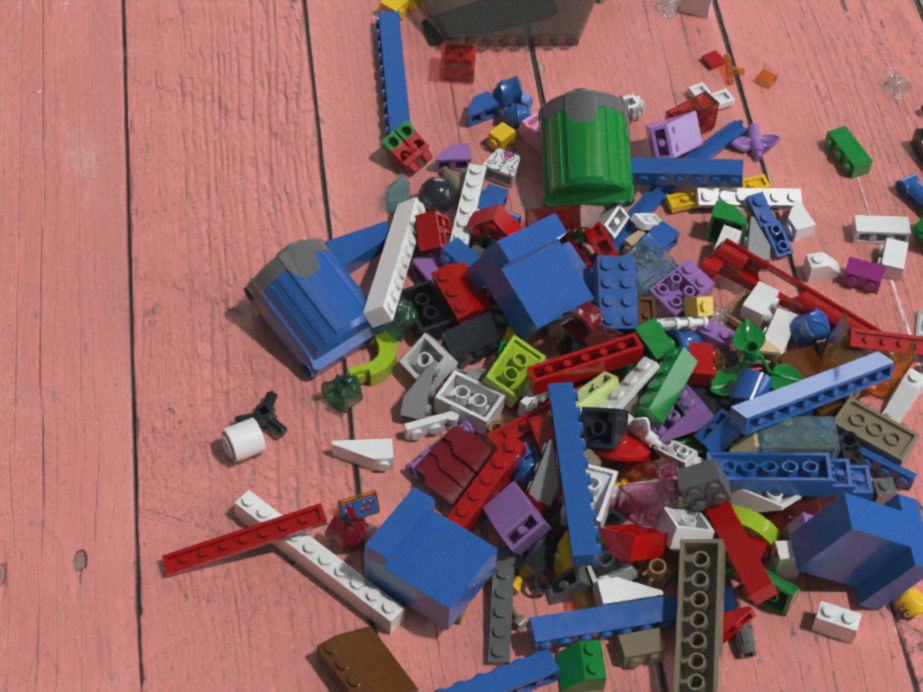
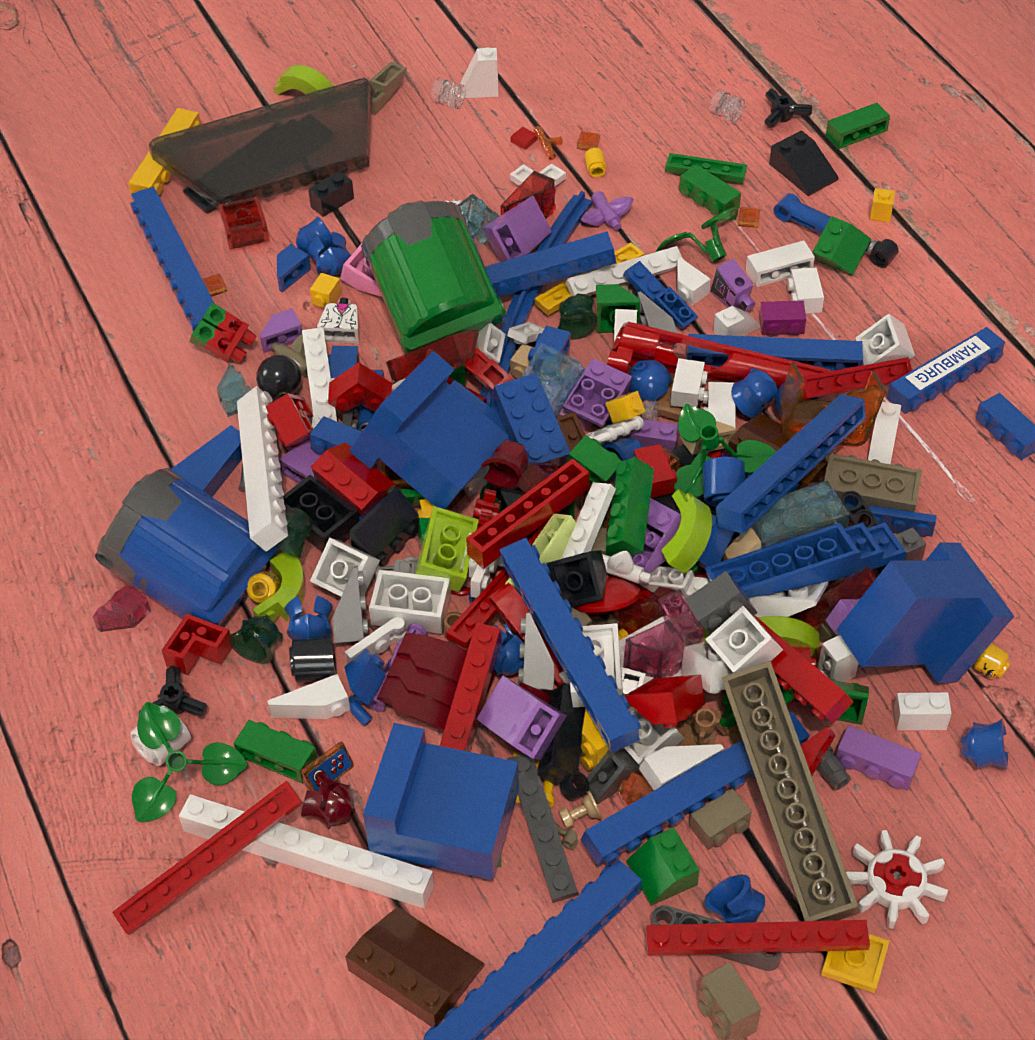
camera: 15 degrees left, 0 degrees up
(242, 432) = (158, 726): none -> green plant
(251, 337) = (122, 611): none -> clear pink slope
(295, 377) = (193, 640): none -> red brick
(323, 479) = (275, 750): none -> green brick
(362, 353) = (262, 586): none -> yellow head
(378, 421) = (312, 658): none -> black piece
(383, 396) = (309, 625): none -> blue helmet
(397, 470) = (358, 711): none -> blue arm
(413, 446) = (365, 675): none -> blue slope
(416, 105) = (215, 285): none -> clear orange tile
(537, 59) = (331, 193): none -> black brick
(543, 603) = (589, 807): none -> tan piece
(557, 348) = (486, 508): none -> red gear
(642, 112) = (477, 216): none -> clear light blue brick
(694, 221) = (577, 316): none -> clear green helmet
(706, 422) = (692, 533): none -> lime arch
(709, 518) = (743, 642): none -> white slope
(729, 290) = (649, 379): none -> blue cylinder
(763, 98) = (595, 162): none -> yellow brick
(785, 645) = (878, 758): none -> medium lavender brick
(832, 198) = (714, 246): none -> green plant
(832, 236) = (732, 286): none -> medium lavender torso
(862, 134) = (721, 169): none -> green plate
(873, 183) = (749, 217): none -> clear orange tile
(873, 665) = (985, 745): none -> blue helmet
(878, 313) = (815, 352): none -> blue brick

